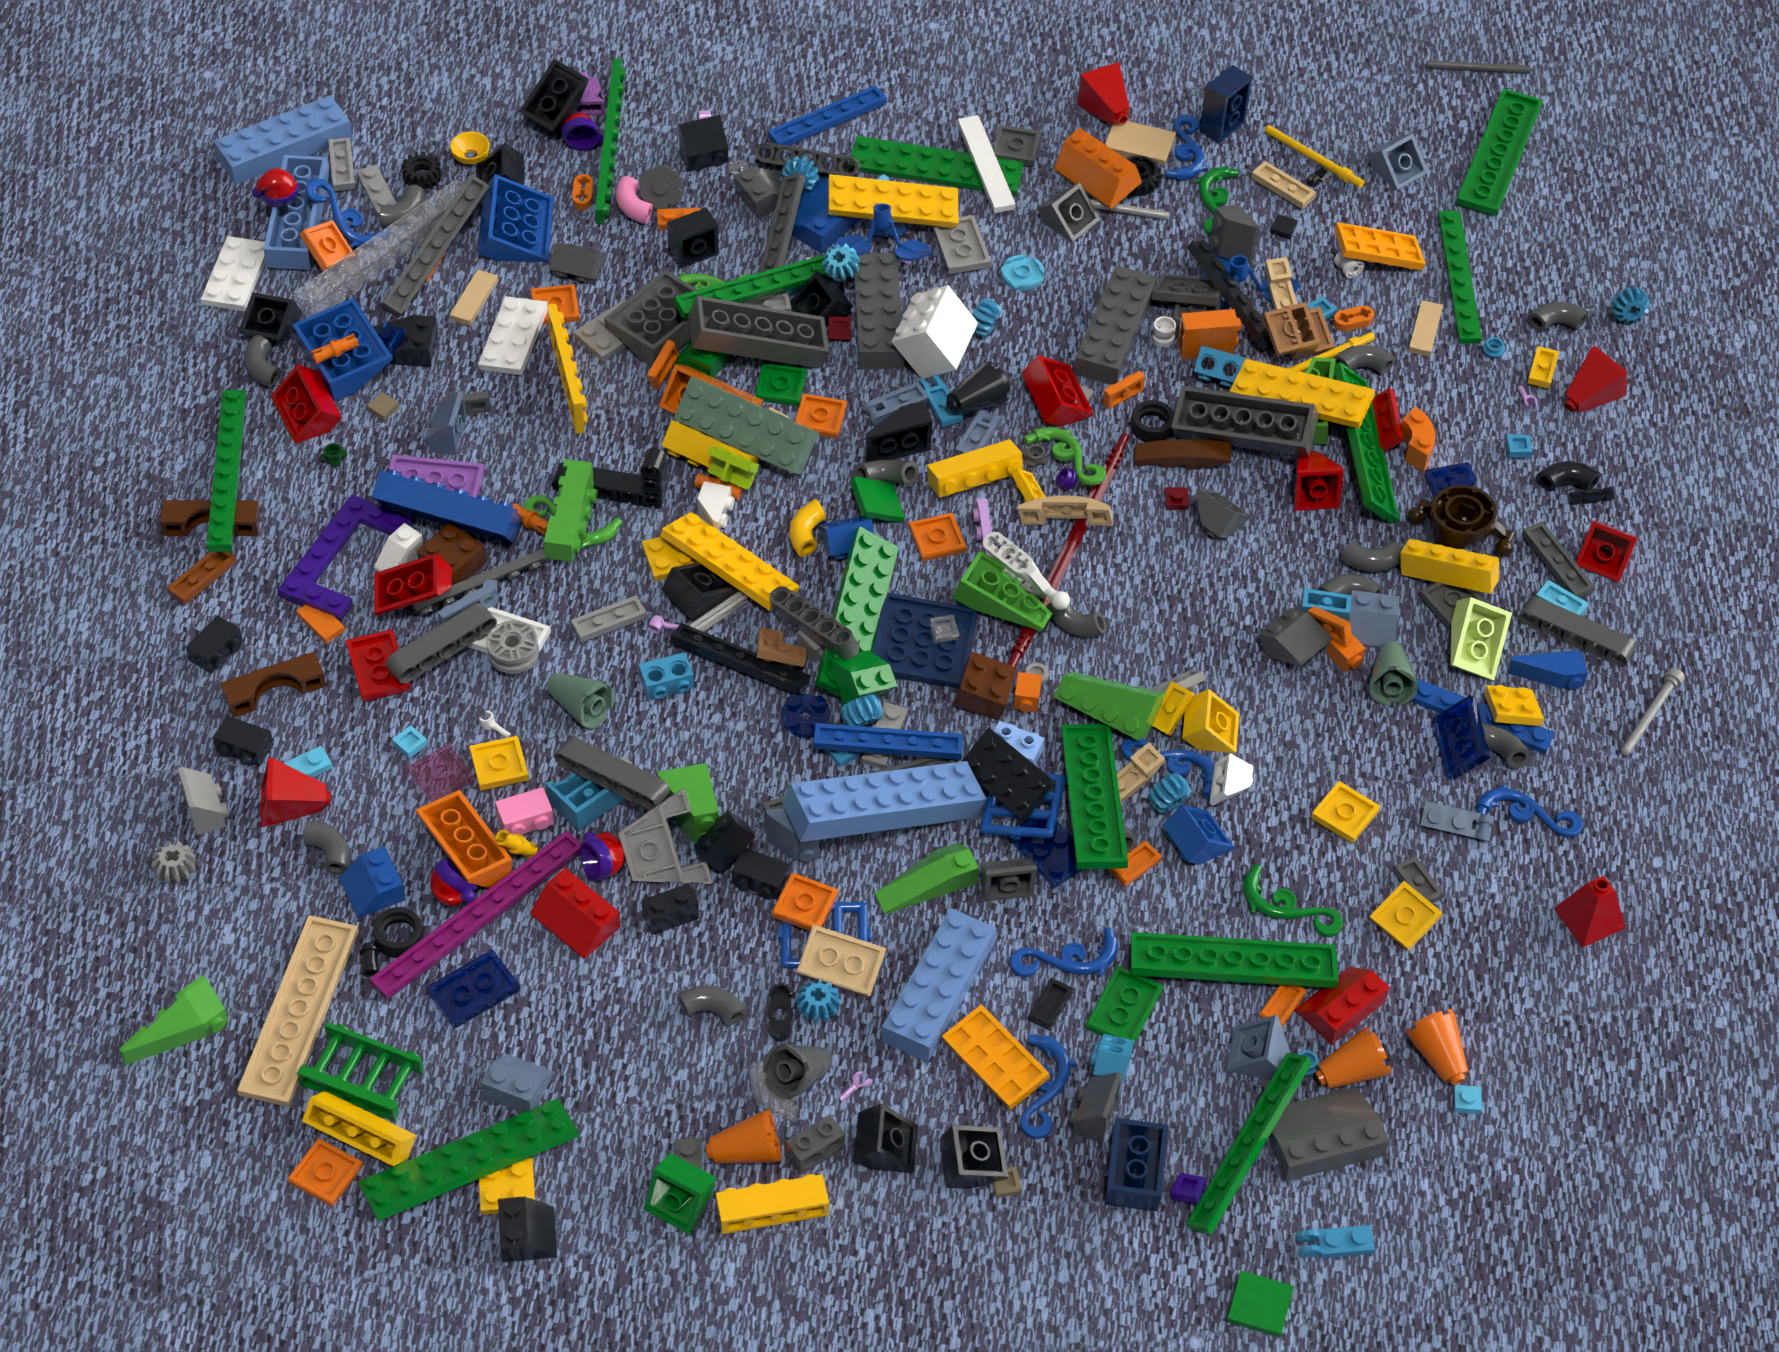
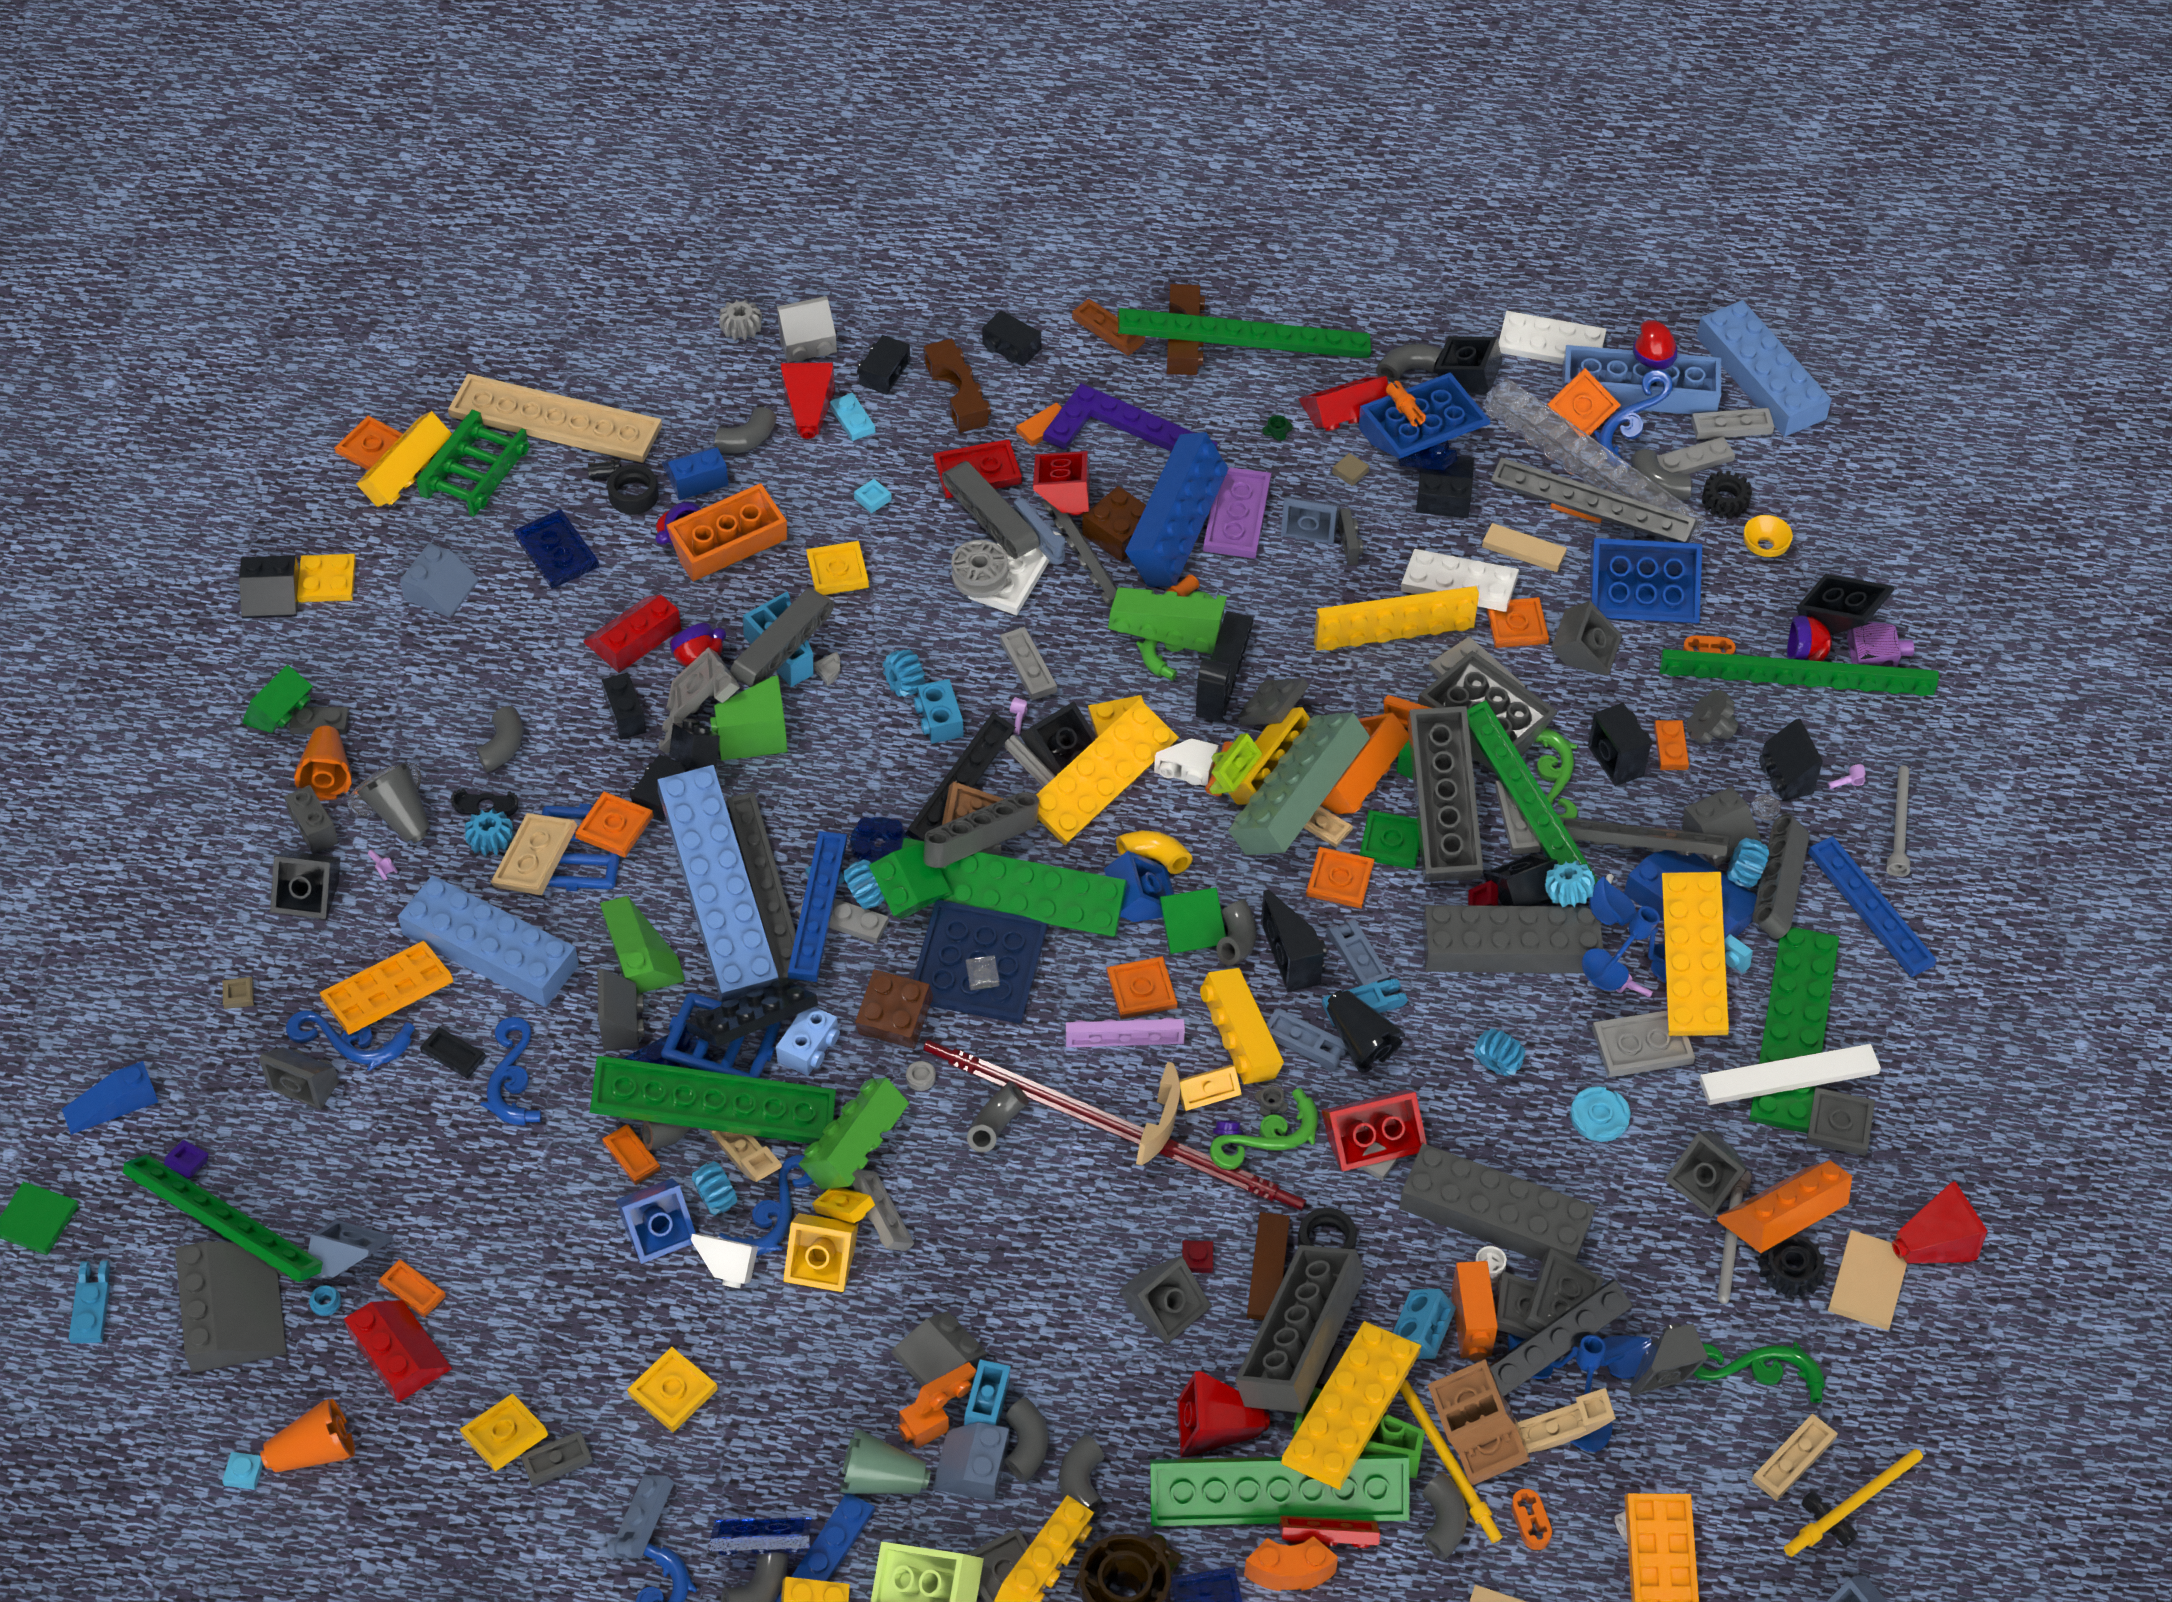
camera: 95 degrees right, 0 degrees up
(190, 1018) = (552, 329): bright green wedge -> none
(399, 548) = (1134, 479): white slope -> none
(441, 773) = (832, 523): clear pink tile -> none
(467, 1159) = (357, 545): green plate -> none
(475, 915) = (646, 551): magenta plate -> none
(491, 724) = (895, 565): white hand -> none
(503, 162) = (1729, 568): black slope -> none
(516, 843) = (718, 573): yellow pin -> none
(525, 812) = (760, 579): bright pink brick -> none
(582, 698) = (910, 628): sand green cone -> none
(629, 202) = (1686, 691): bright pink cylinder -> none
(630, 698) = (903, 672): none -> dark azure gear
(651, 436) = (1272, 701): none -> dark grey plate
(772, 1203) = (249, 780): yellow brick -> none
(785, 100) = (1898, 863): none -> light grey piece
(934, 332) = (1454, 980): white container -> none
(973, 1156) = (264, 953): black slope -> none
(994, 592) = (1031, 1028): bright green wedge -> none
(1024, 568) = (1046, 1037): white piece -> none
(1027, 692) = (886, 1058): orange brick -> none
(1112, 1055) = (352, 1097): dark azure brick -> none
(1123, 390) = (1377, 1201): orange plate -> none
(1124, 1005) = (436, 1124): green tile -> none
(1135, 1260) = (111, 1098): none -> blue slope
(1136, 1164) = (220, 1105): dark blue brick -> none
(1185, 151) = (1854, 1330): blue plant -> none
(1225, 104) = (1927, 1373): dark blue brick -> none
(1233, 960) = (472, 1238): green plate -> none
(1284, 226) = (1712, 1450): black tile -> none
(1289, 900) = (539, 1309): green plant -> none
(1327, 308) = (1542, 1474): dark azure plate -> none
(1354, 1061) = (307, 1347): orange cone -> none

